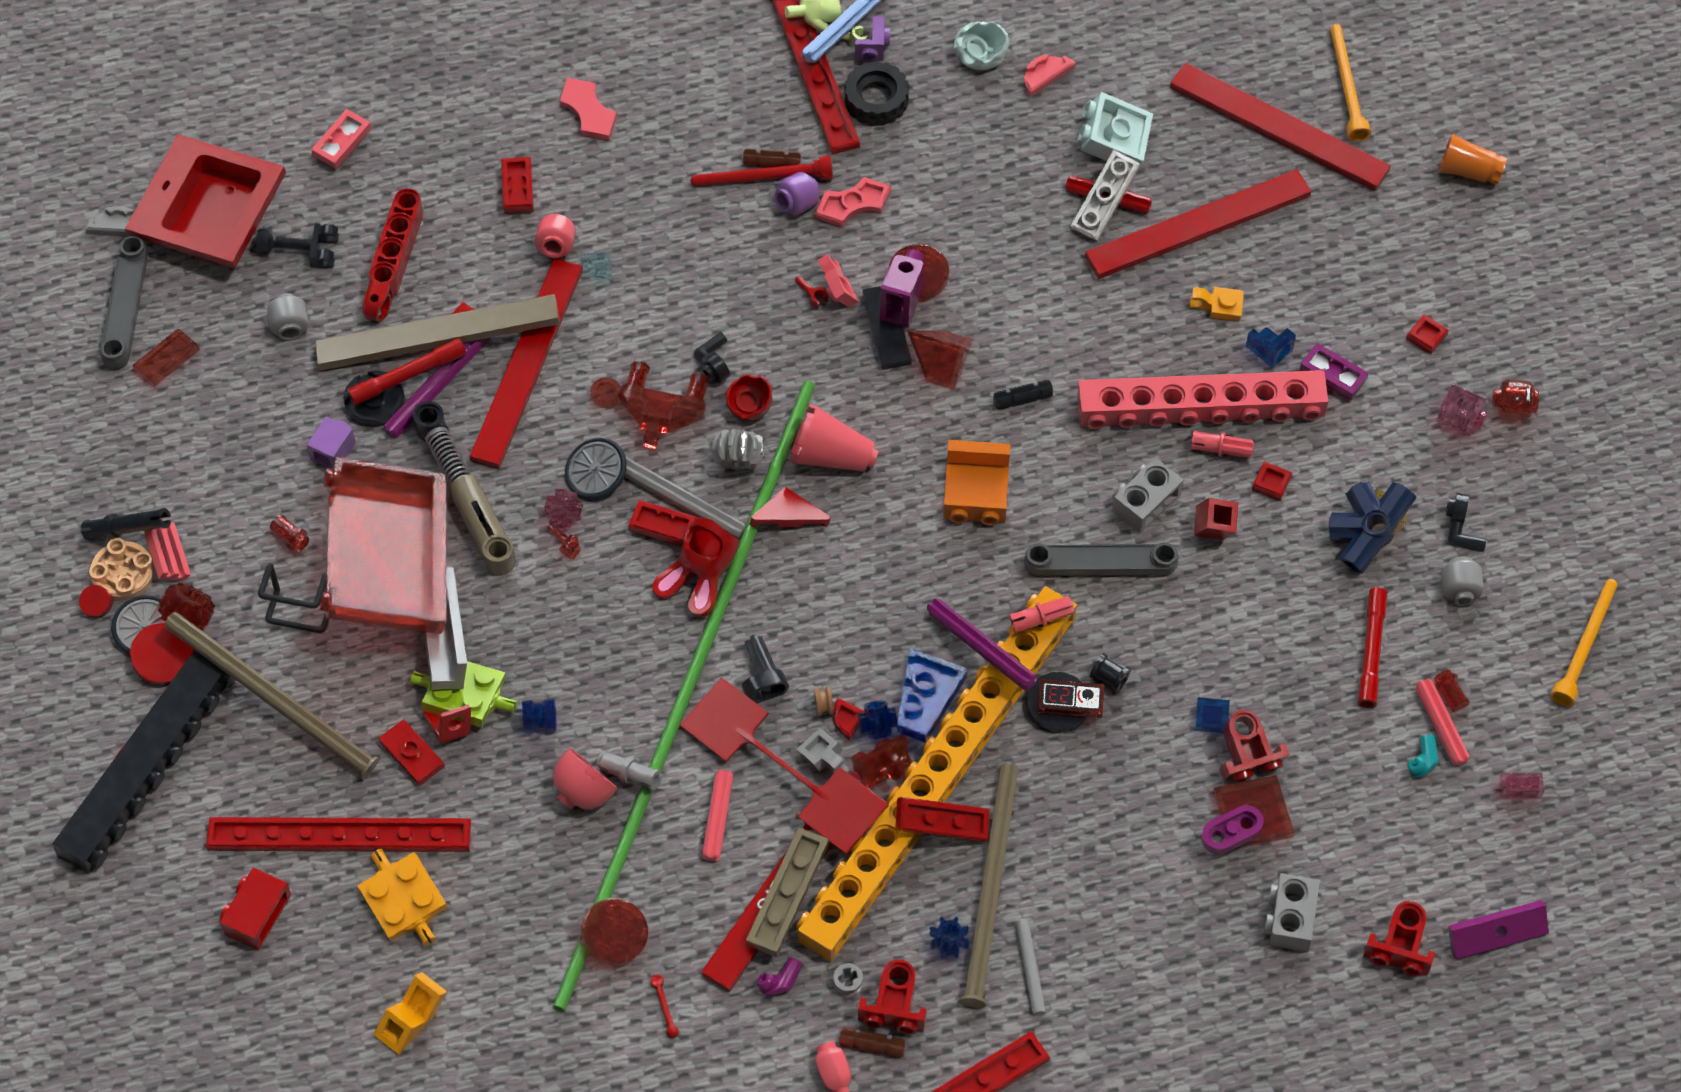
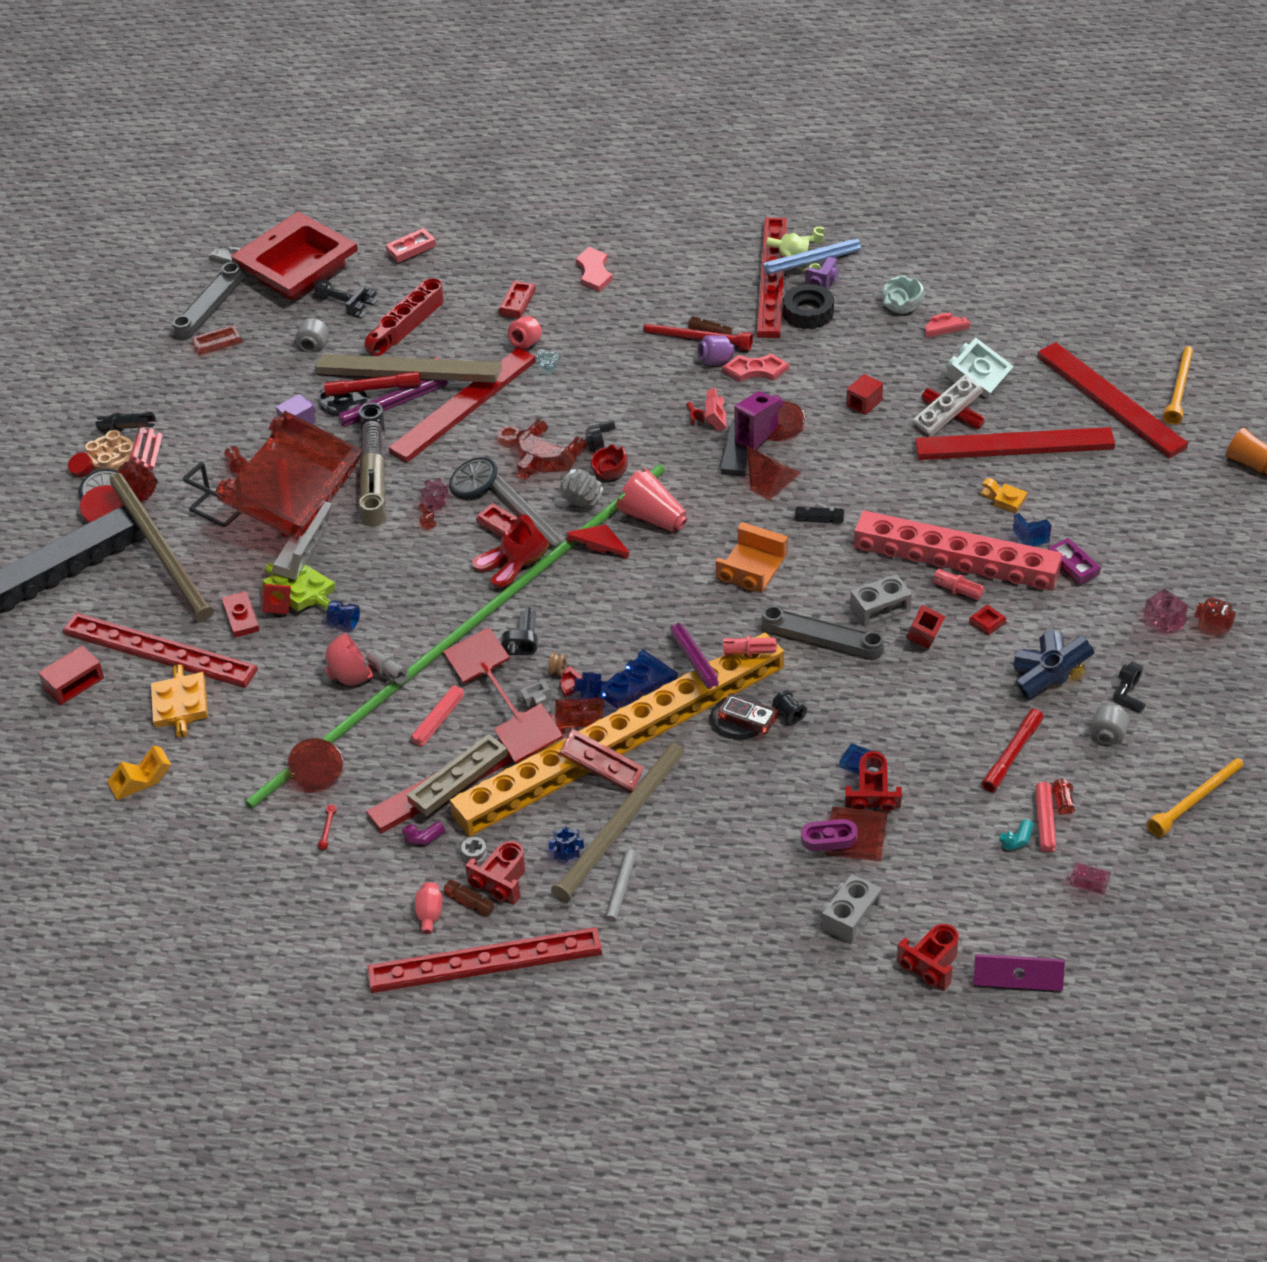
camera: 25 degrees right, 15 degrees down
(1001, 206) = (864, 394): none -> red brick
(1427, 334) = (1164, 558): red tile -> none

